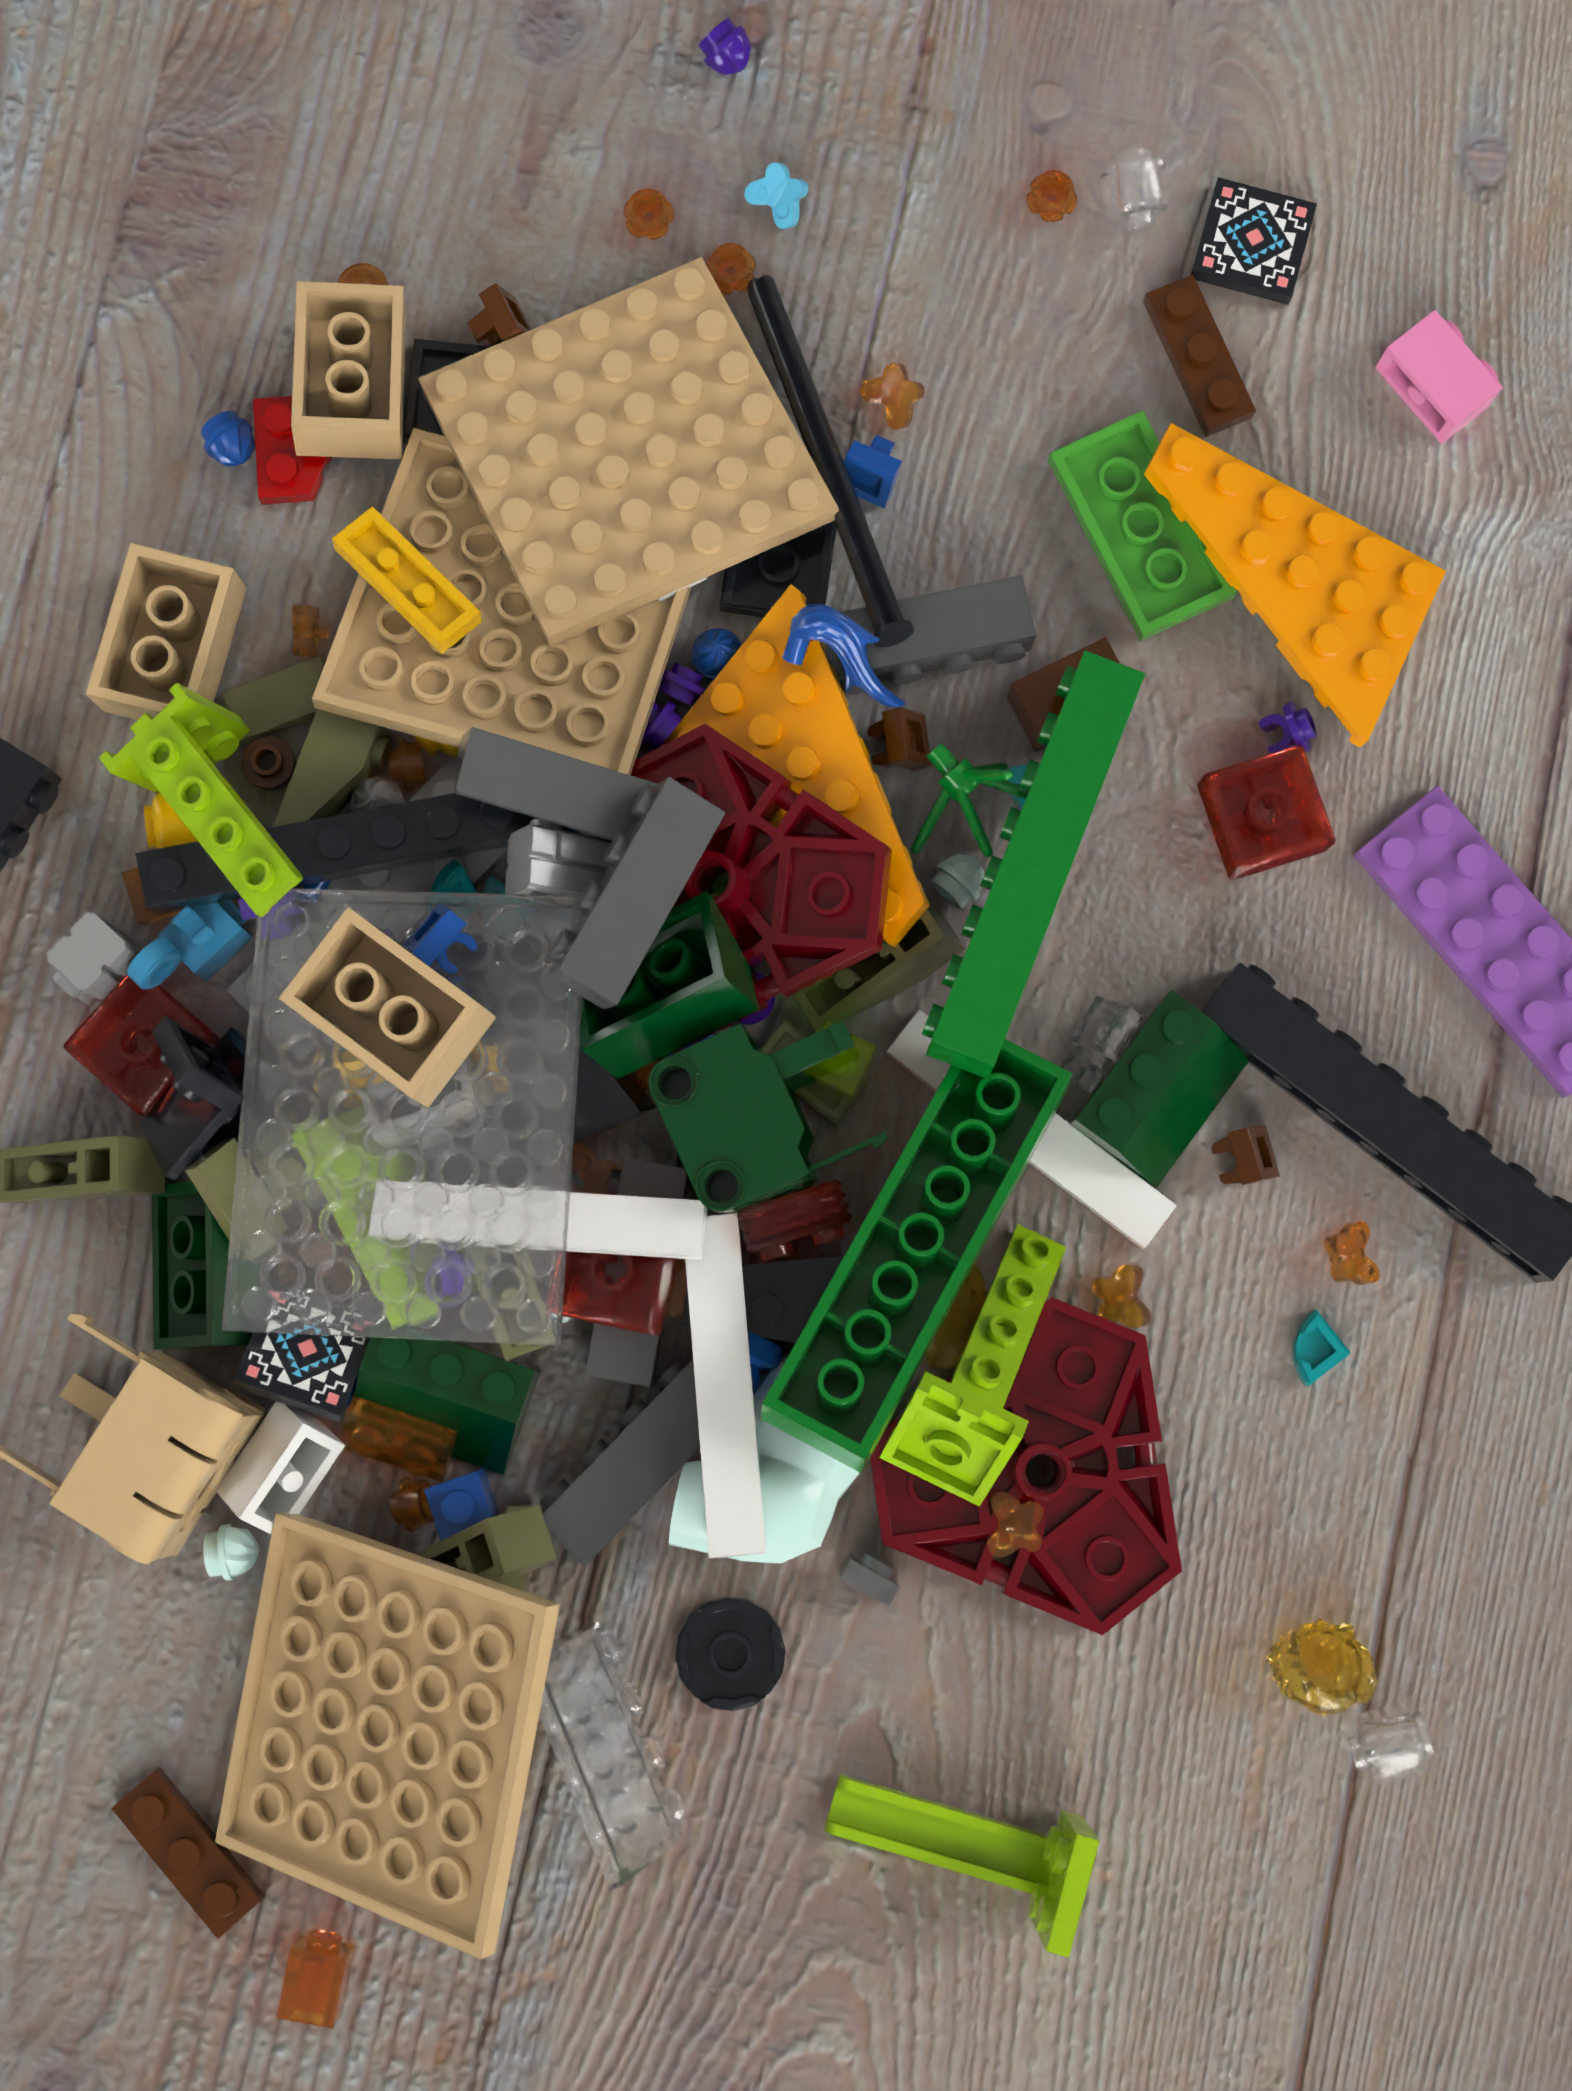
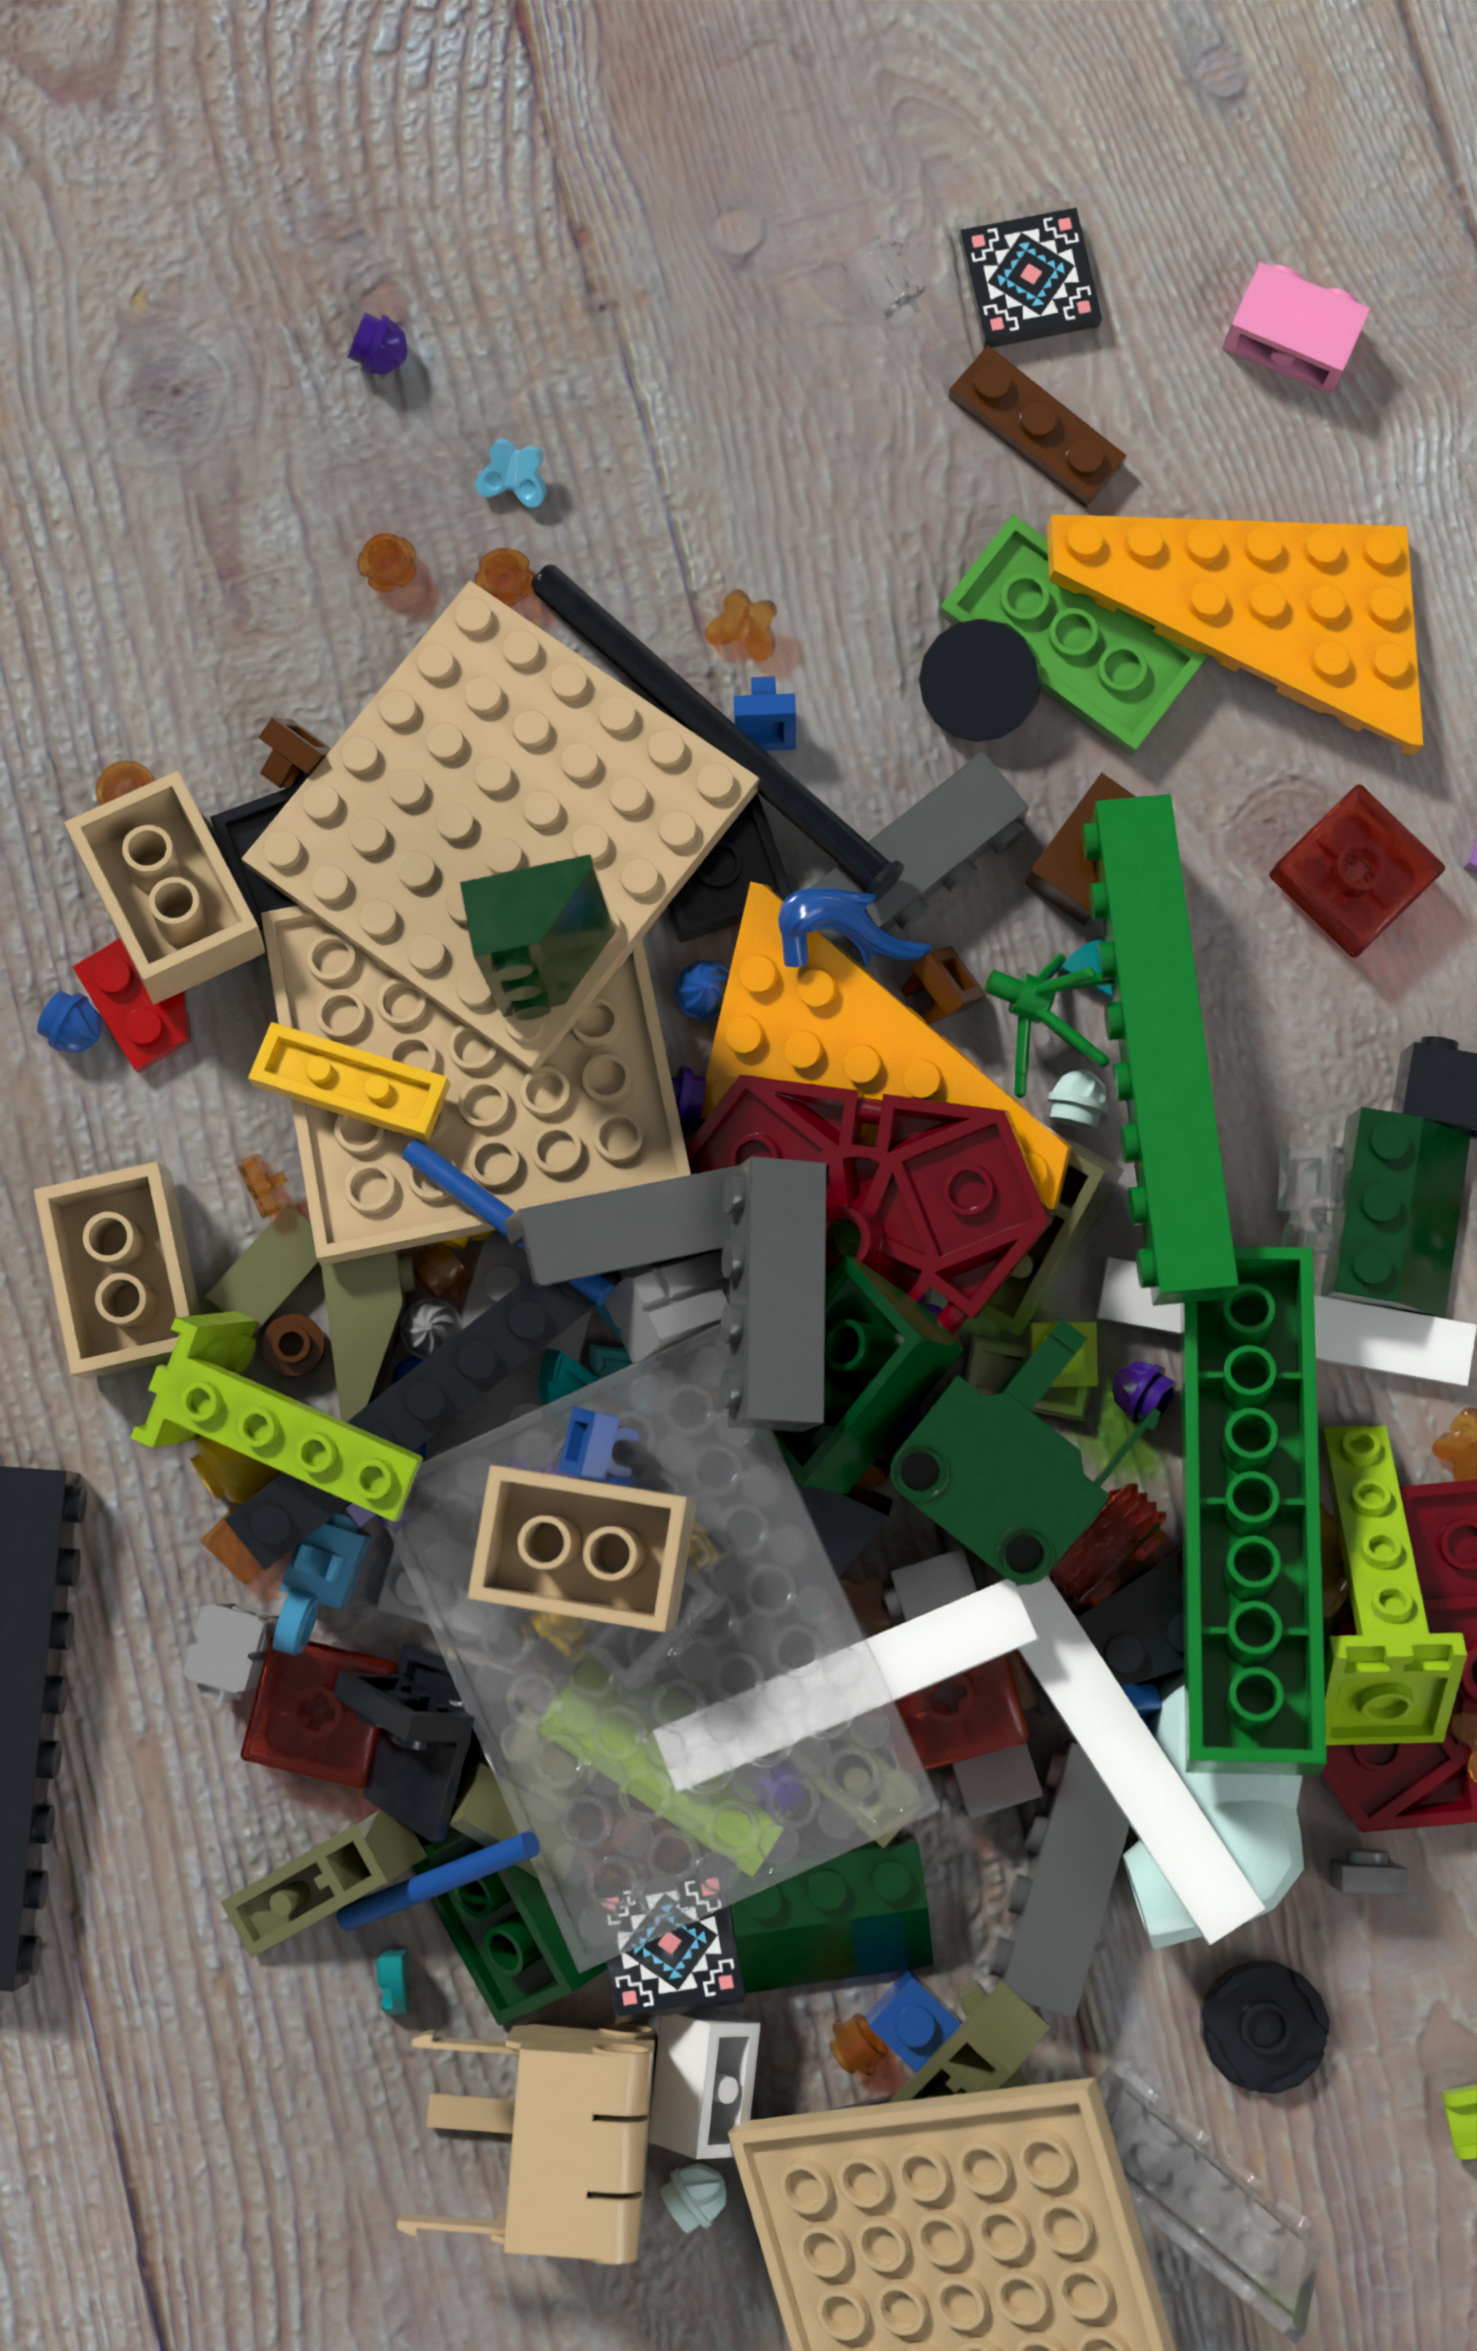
camera: 25 degrees left, 0 degrees up
(95, 1268) = (393, 1979): none -> teal tile
(159, 1211) = (439, 1880): none -> blue bar
(398, 1439) = (808, 1986): clear orange plate -> none
(458, 724) = (485, 1205): none -> blue bar
(597, 527) = (537, 932): none -> dark green slope
(682, 684) = (687, 1041): dark purple plate -> none
(893, 1118) = (1142, 1387): none -> dark purple plate
(1051, 523) = (980, 680): none -> black tile
(1053, 183) = (801, 319): clear orange plate -> none
(1297, 727) = (1341, 765): dark purple plate -> none

